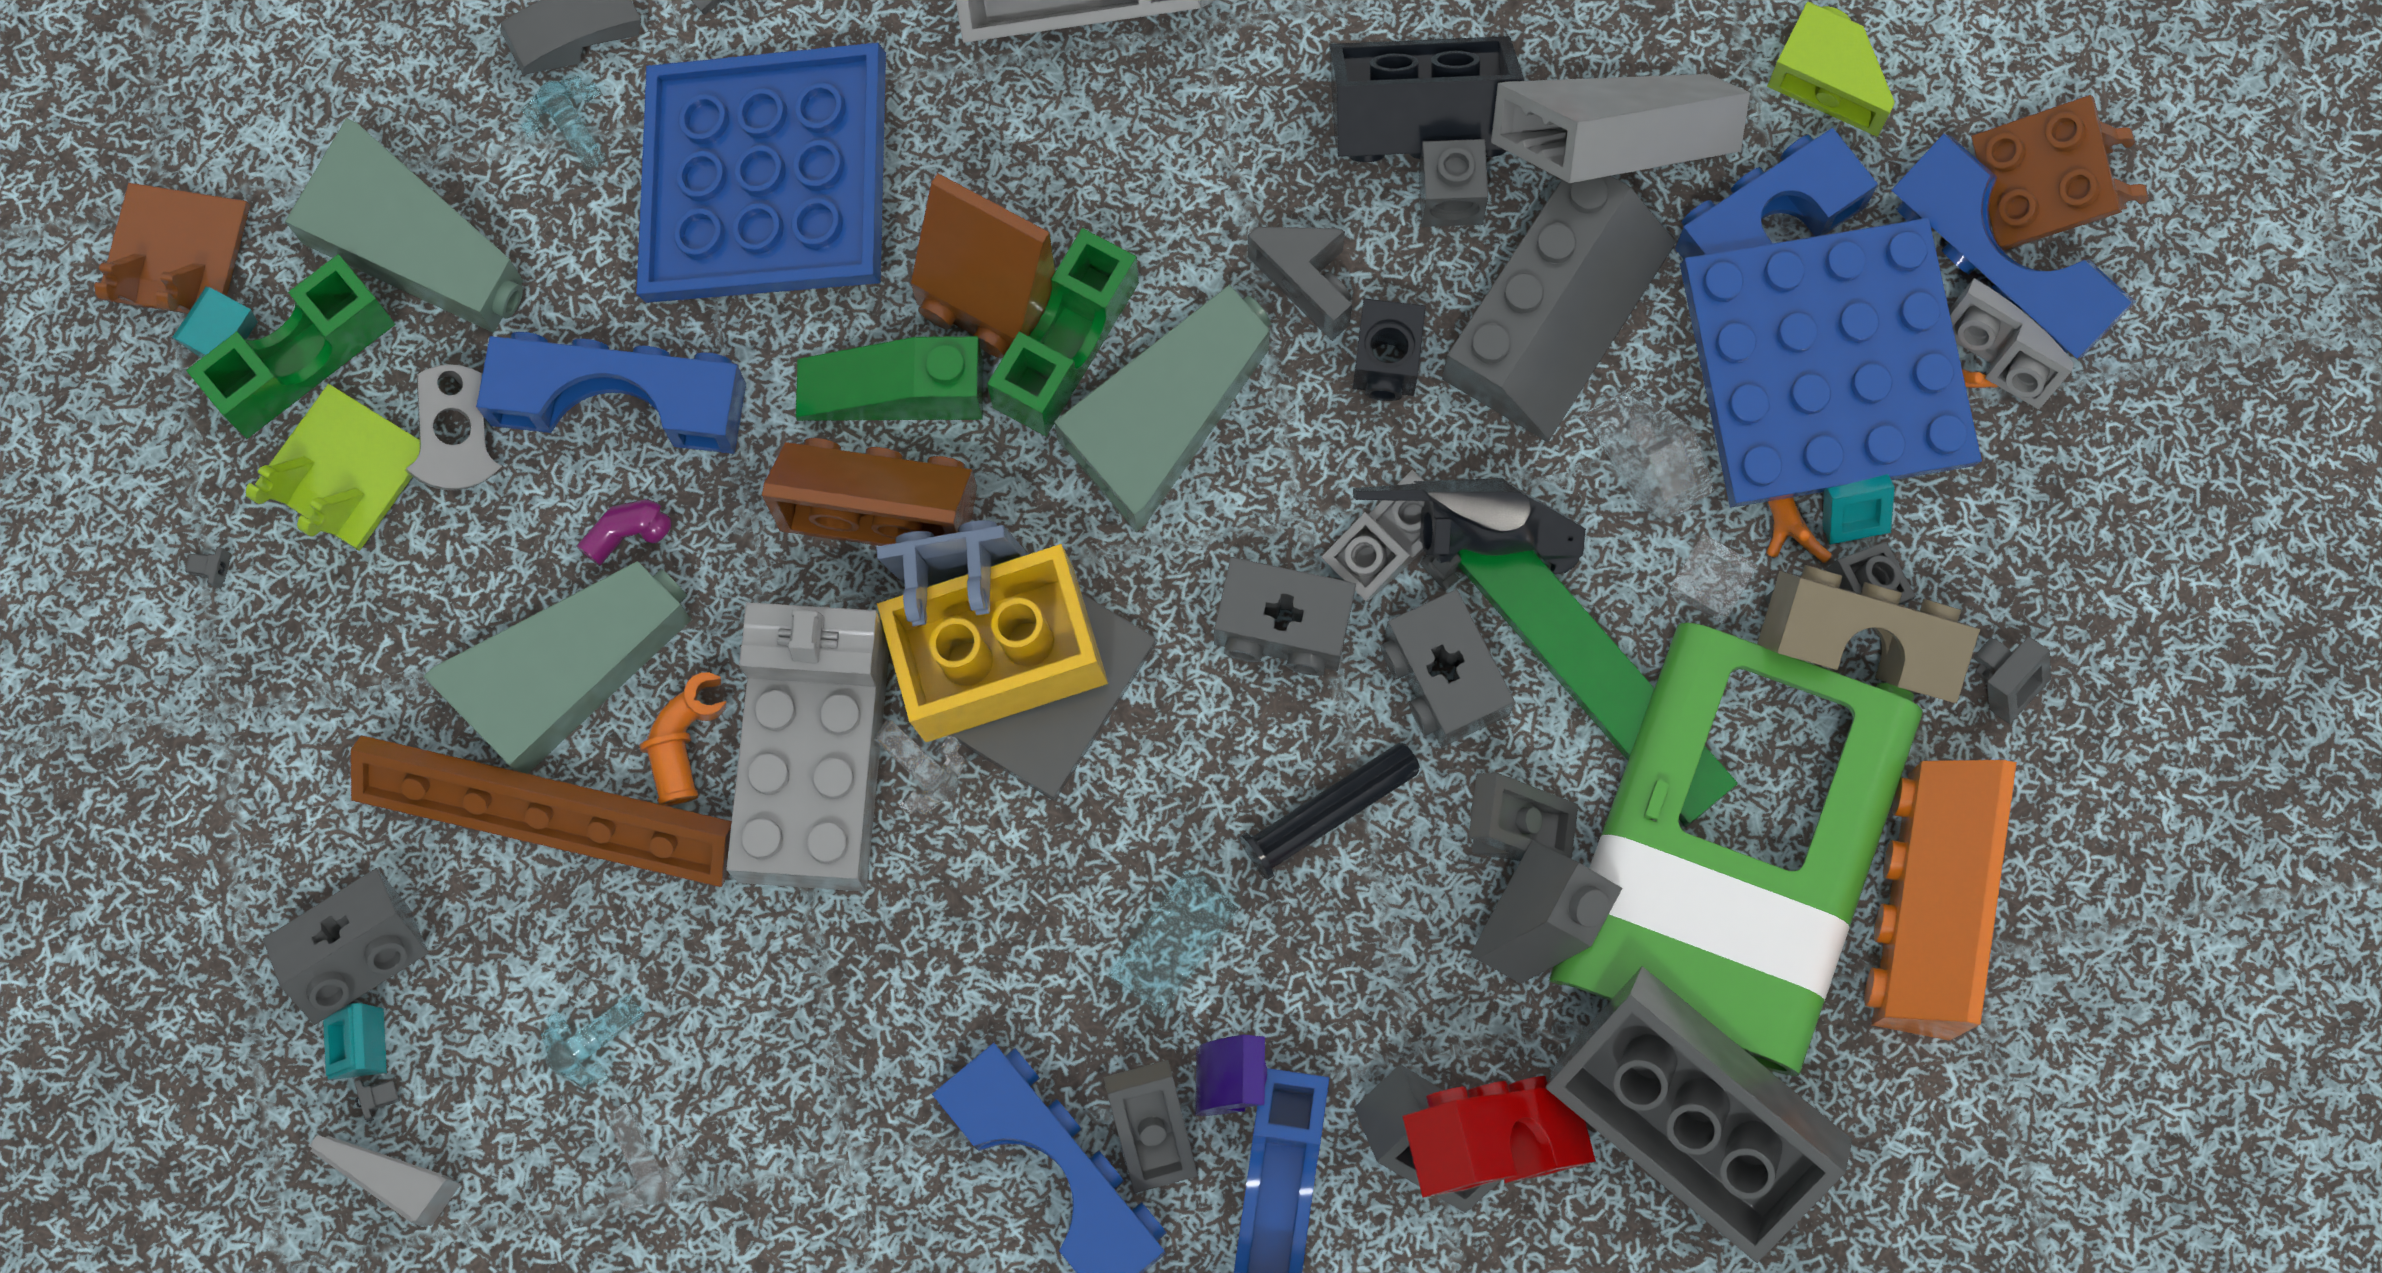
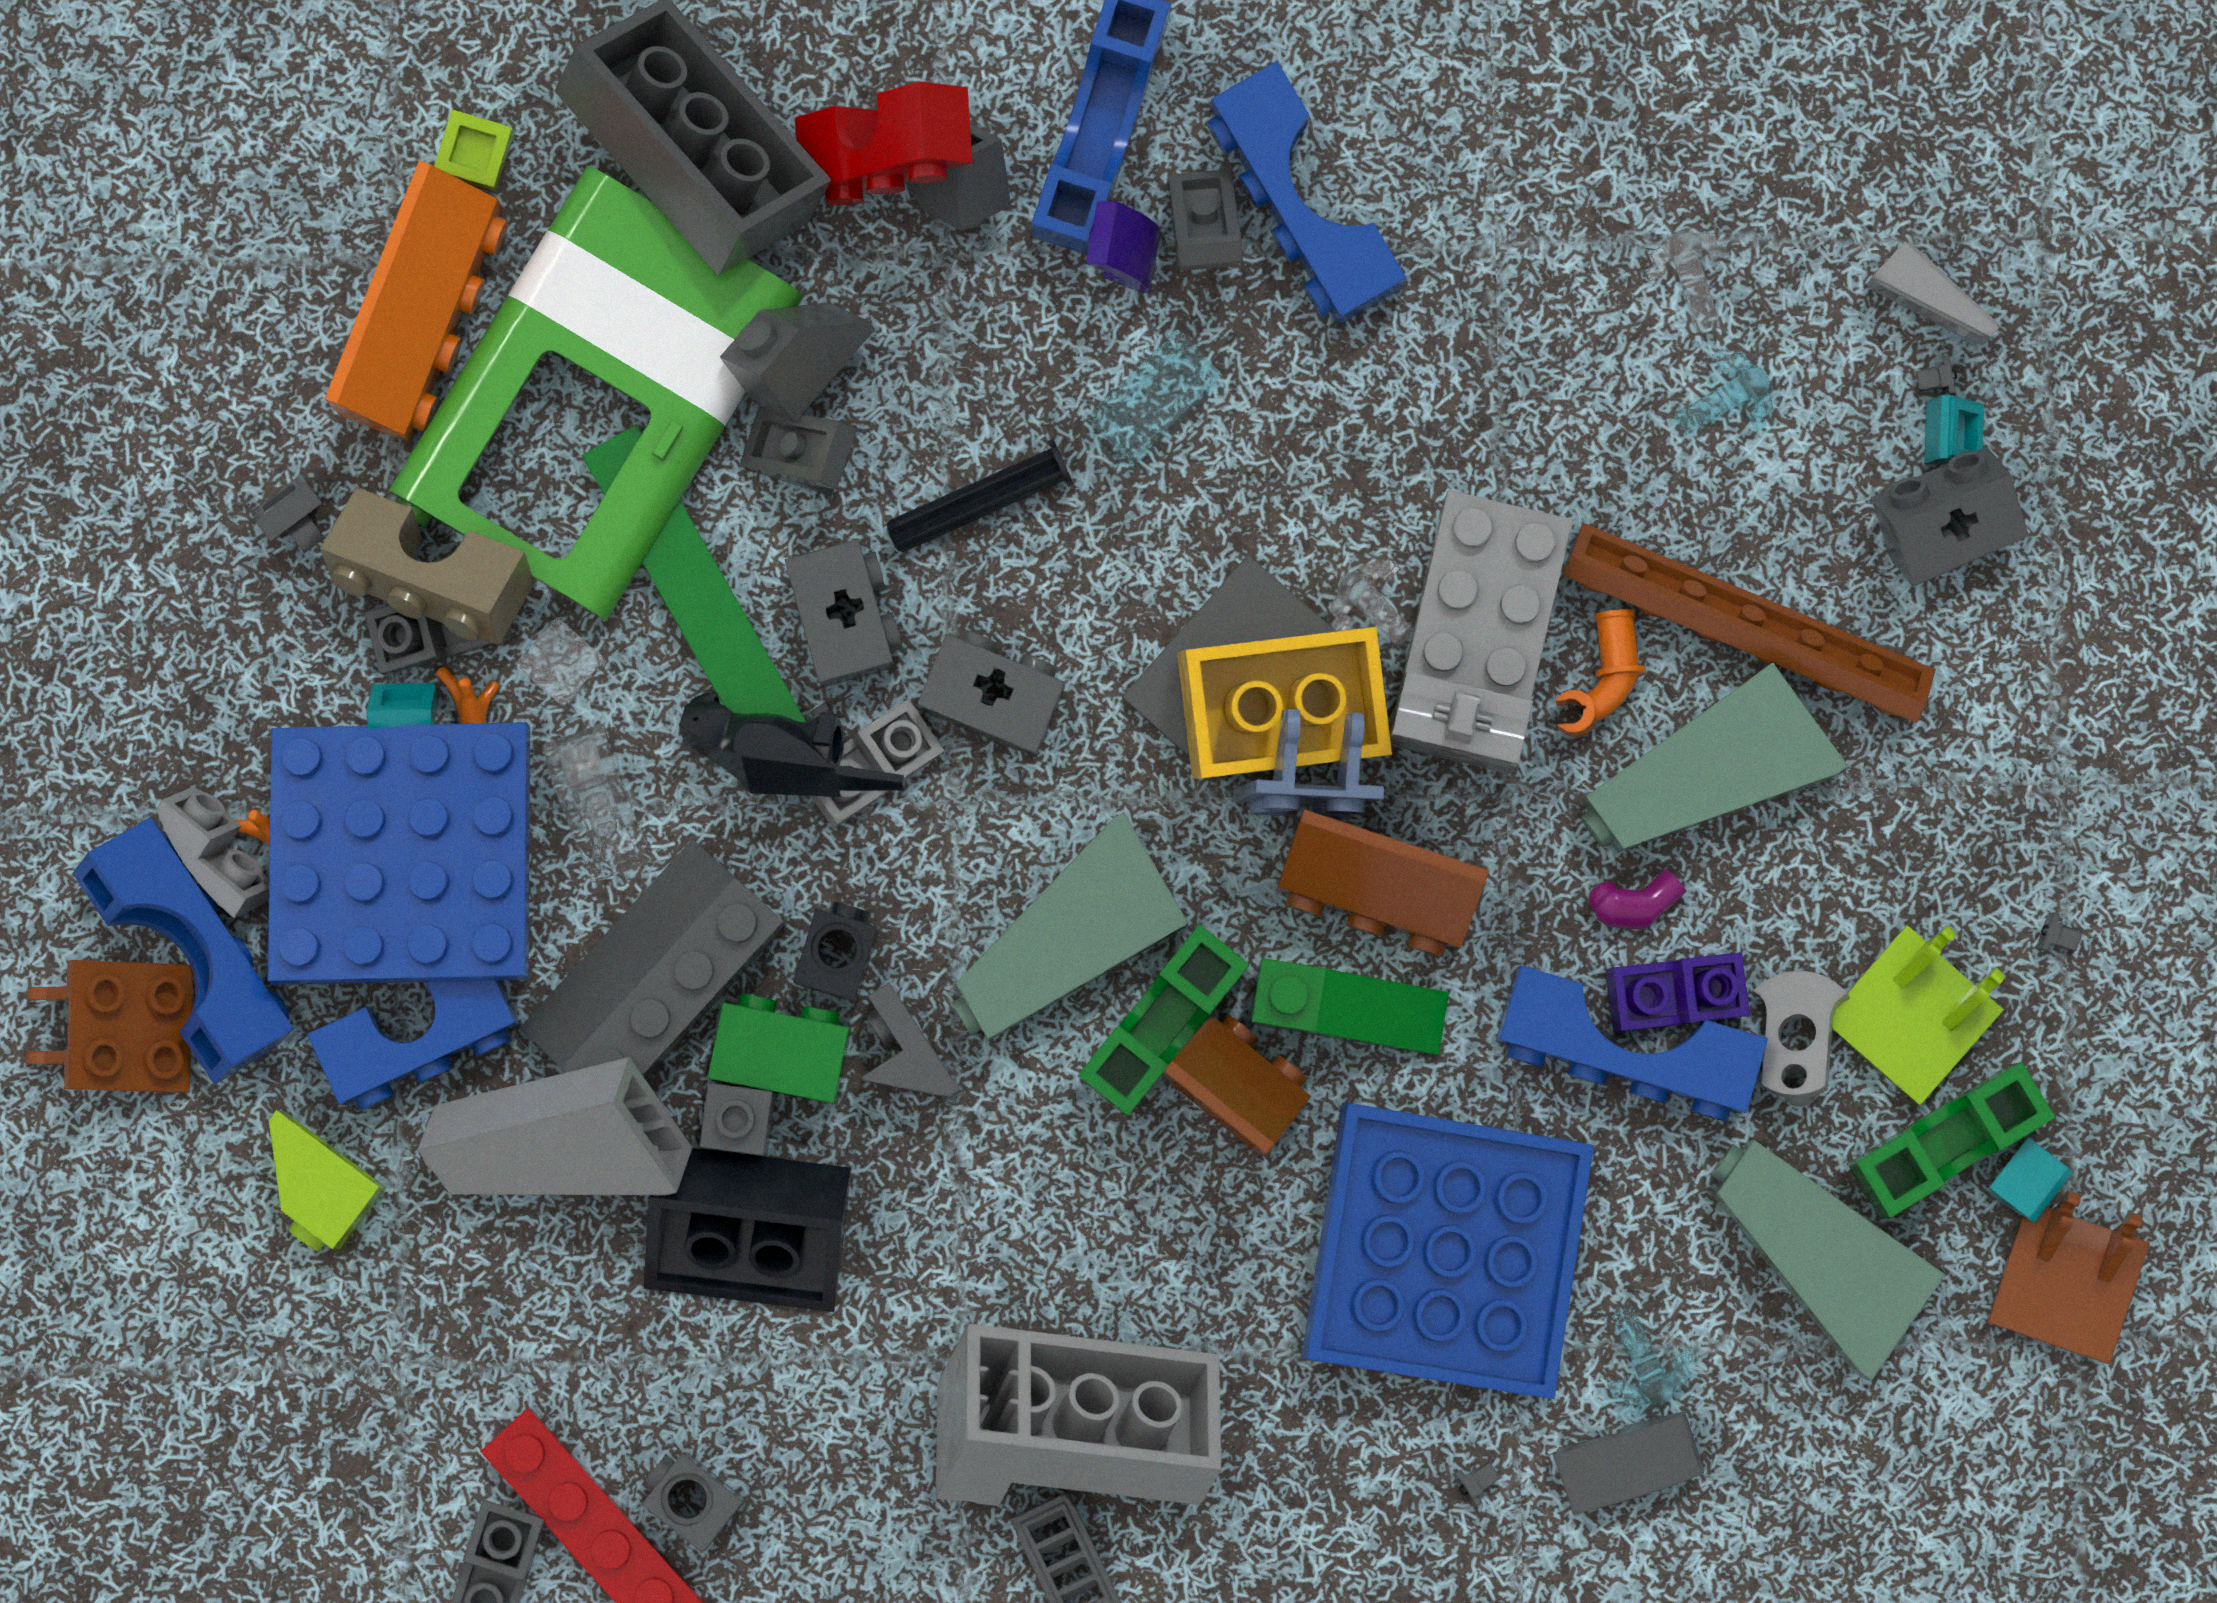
camera: 175 degrees left, 10 degrees up
(574, 454) = (1677, 992): none -> dark purple slope
(1426, 252) = (779, 1050): none -> green brick
(1917, 1074) = (474, 149): none -> lime plate

